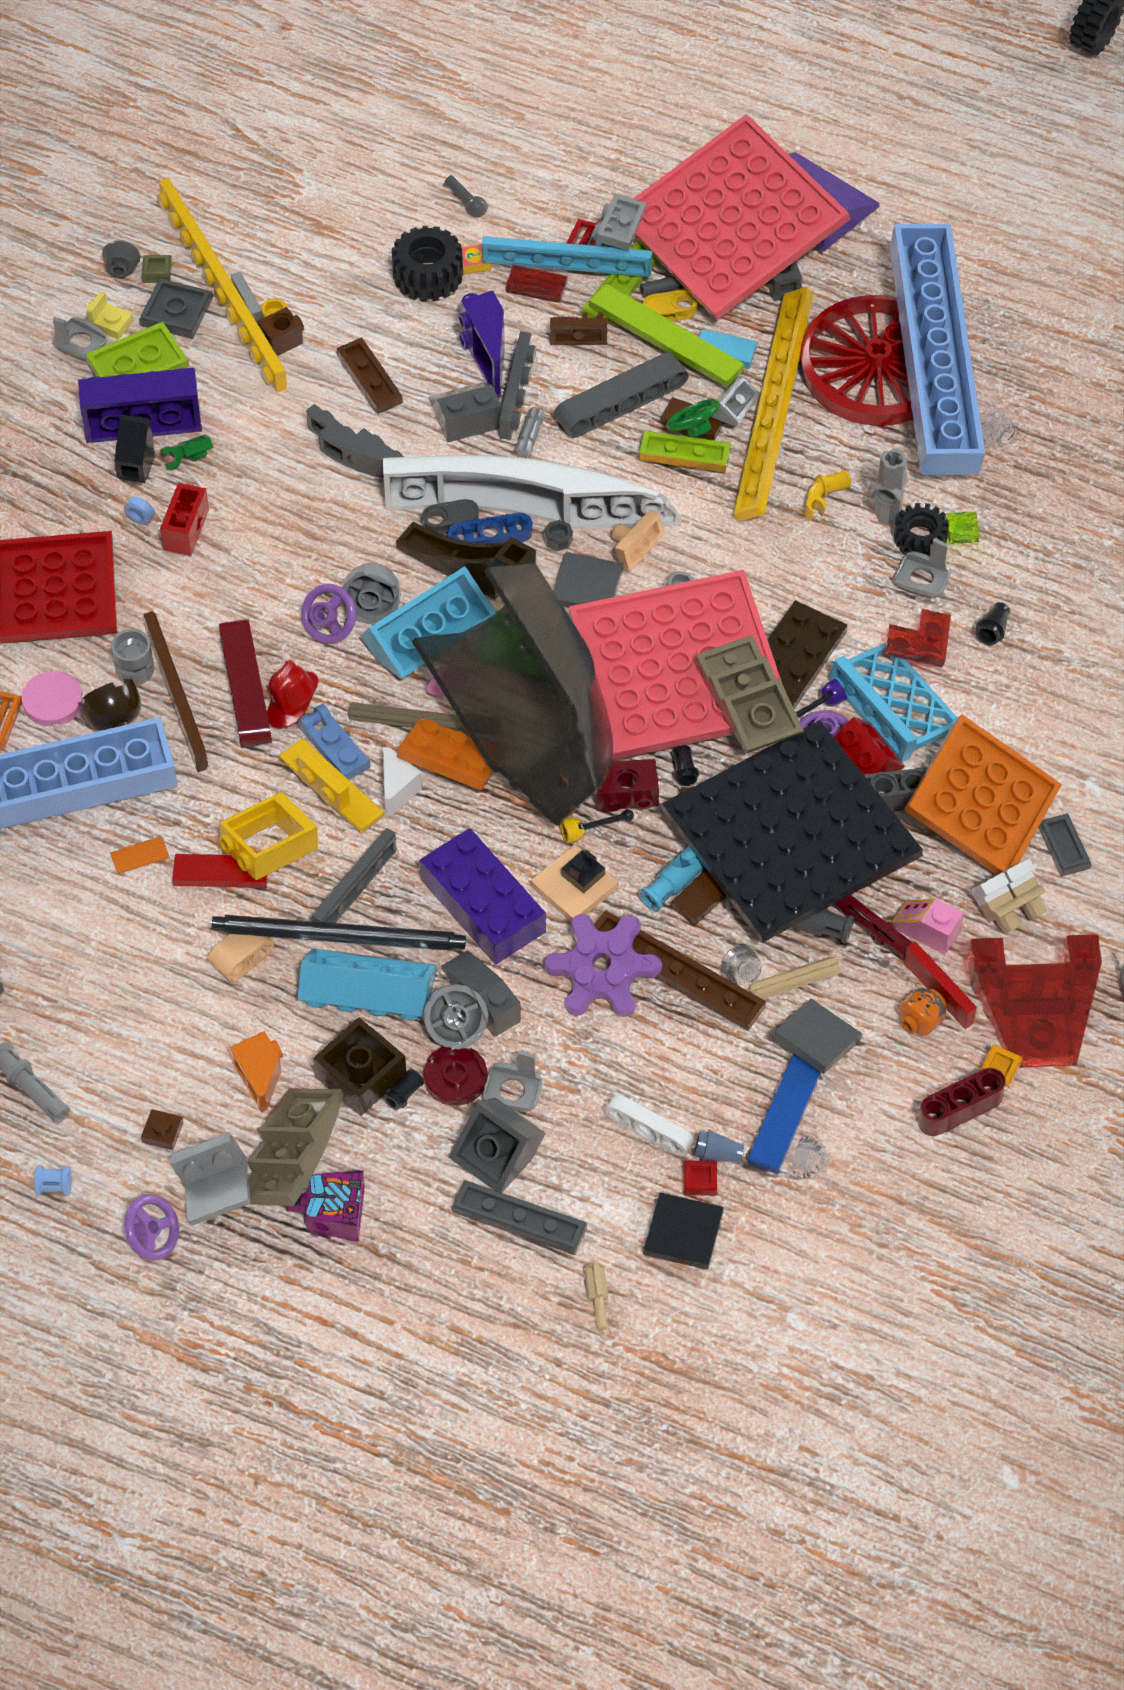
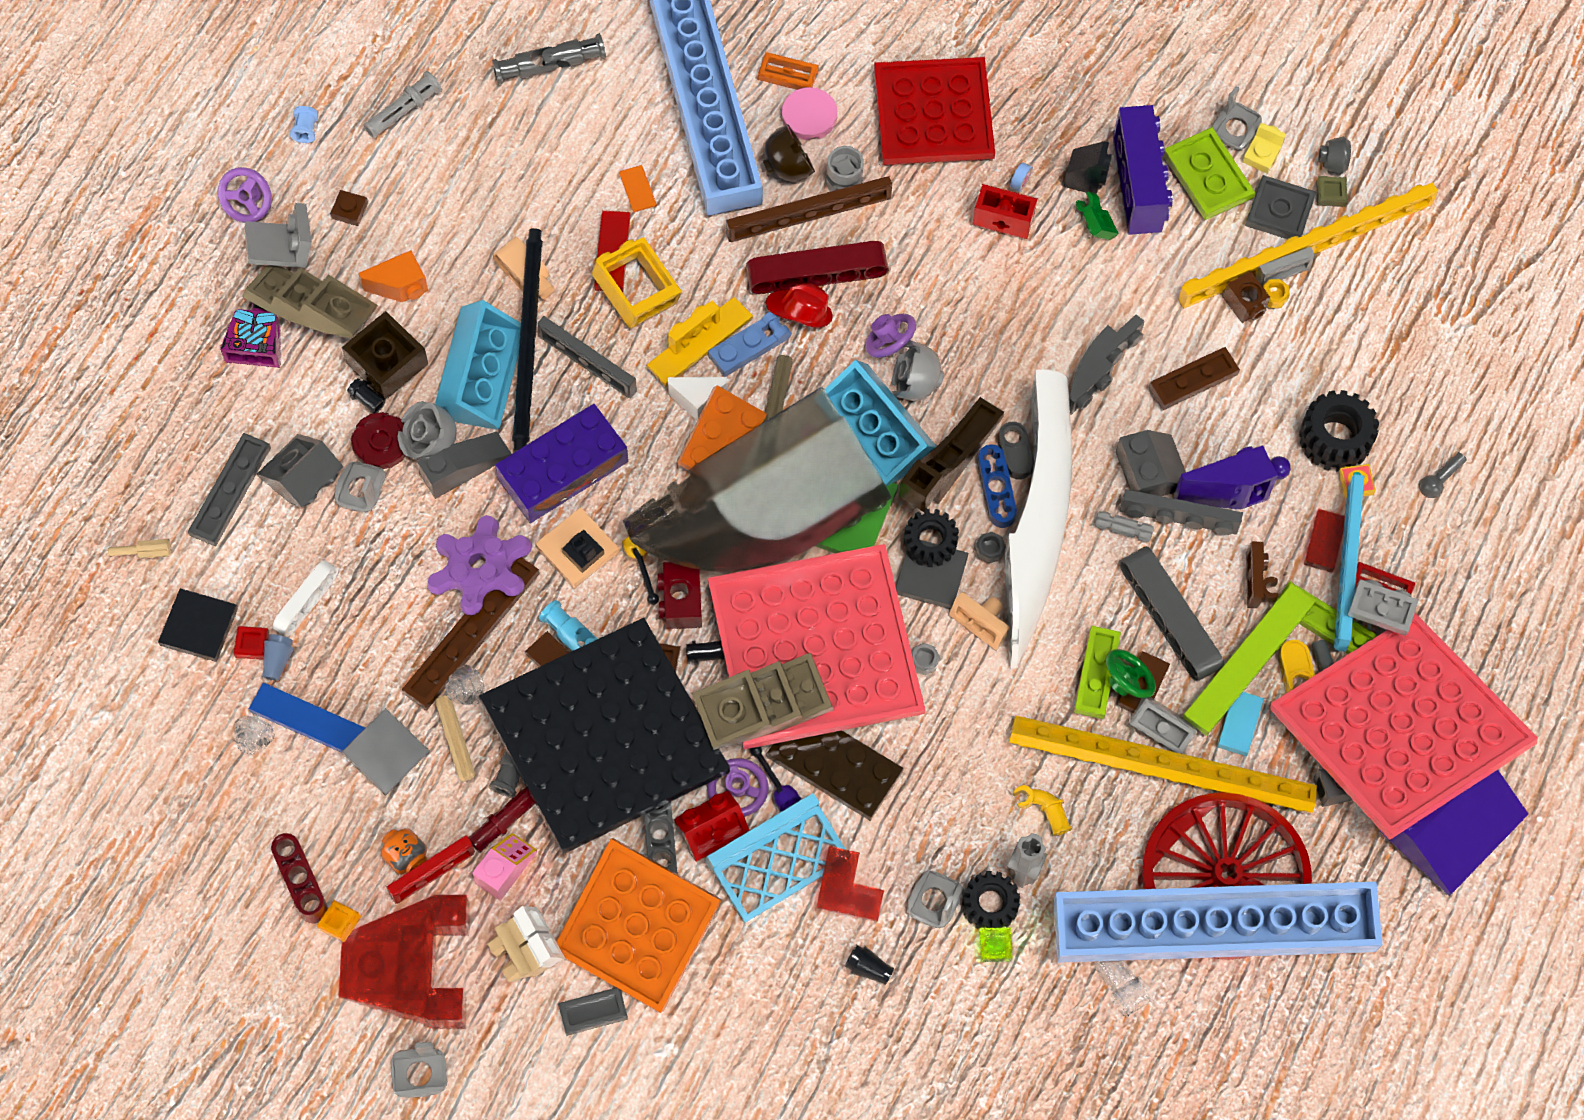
camera: 90 degrees right, 10 degrees up
(566, 563) = (936, 522): none -> black tyre

